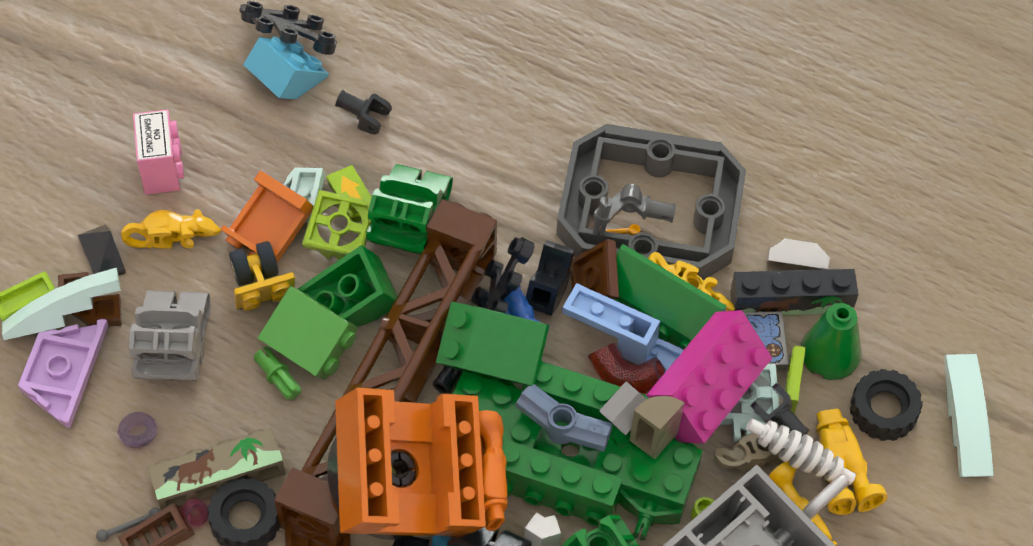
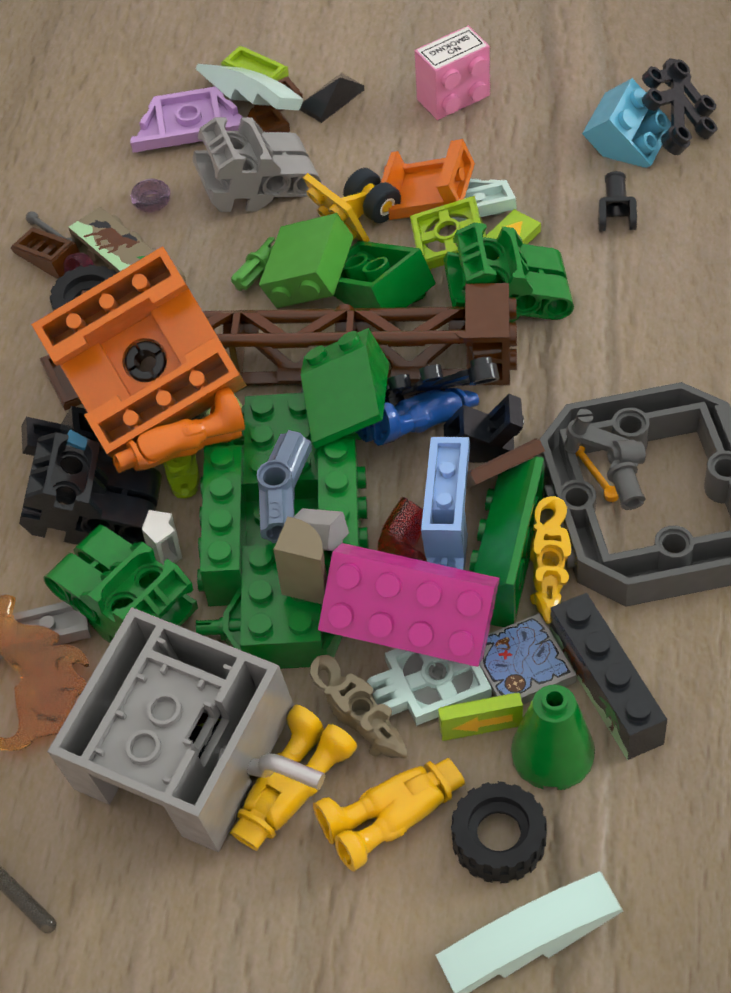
camera: 75 degrees right, 5 degrees down
(165, 227) = (378, 121): yellow animal -> none
(781, 415) = (410, 705): black piece -> none
(799, 253) = (672, 665): white slope -> none
(800, 450) = (358, 737): white piece -> none

